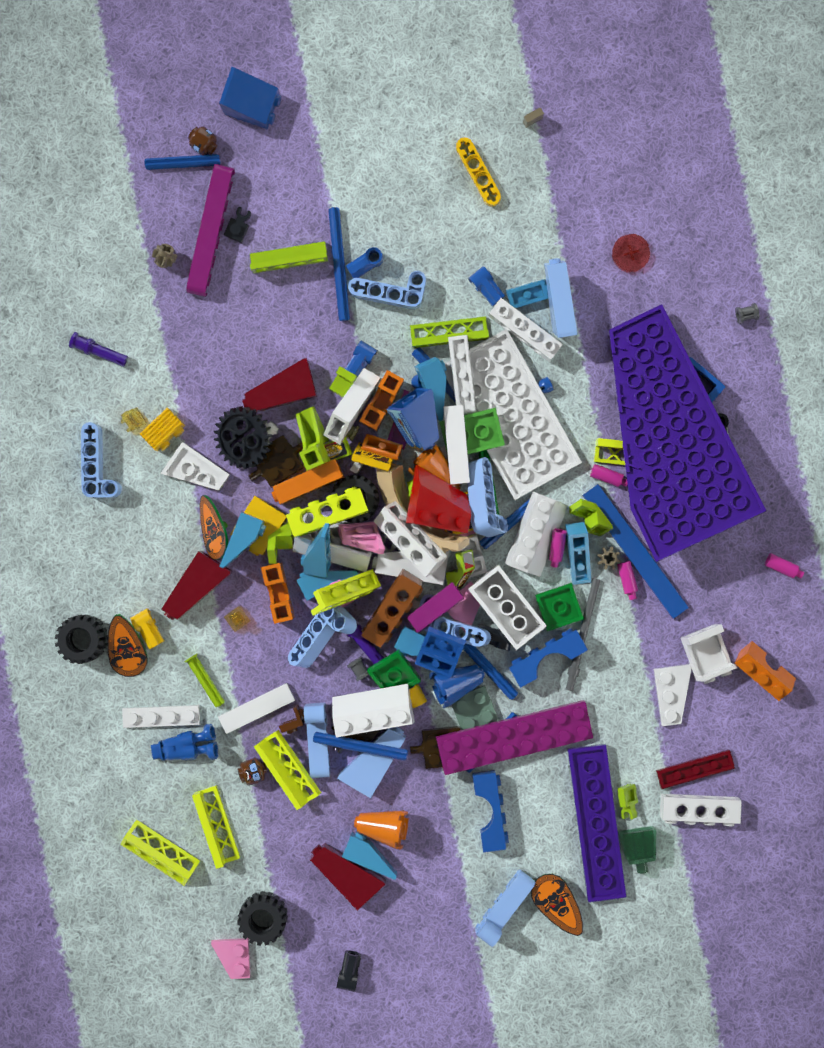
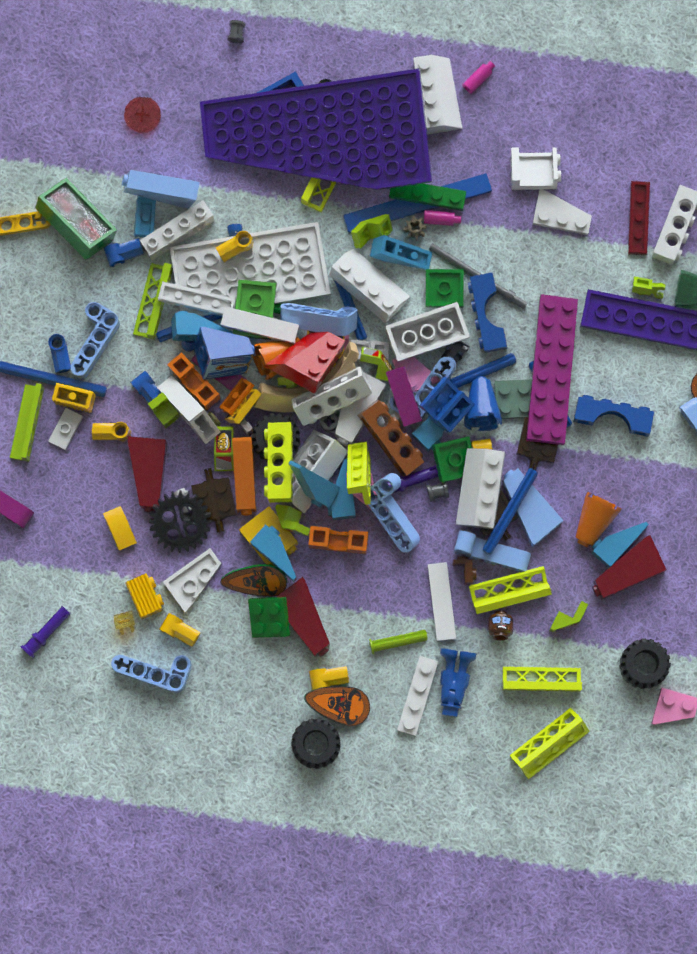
camera: 70 degrees left, 10 degrees down
(143, 470) = (176, 628): none -> yellow piece
(182, 553) = (269, 617): none -> green plate
(219, 382) = (119, 528): none -> yellow slope
(237, 618) = (349, 590): clear yellow tile -> none
(275, 828) = (564, 621): none -> lime slope
(296, 296) = (65, 429): none -> white plate
(307, 338) = (108, 431): none -> yellow piece
(313, 439) = (204, 456): lime arch -> none
(326, 292) = (73, 397): none -> yellow brick
(362, 536) = (313, 441): bright pink wing -> none
(501, 227) = (75, 218): none -> brick
(526, 390) = (233, 247): none -> yellow piece
(557, 547) = (388, 270): dark pink cylinder -> none
(608, 476) = (339, 203): dark pink cylinder -> none
(646, 564) = (430, 195): none -> green plate
(753, 534) = (438, 94): none -> white slope
(753, 662) = (557, 131): orange arch -> none

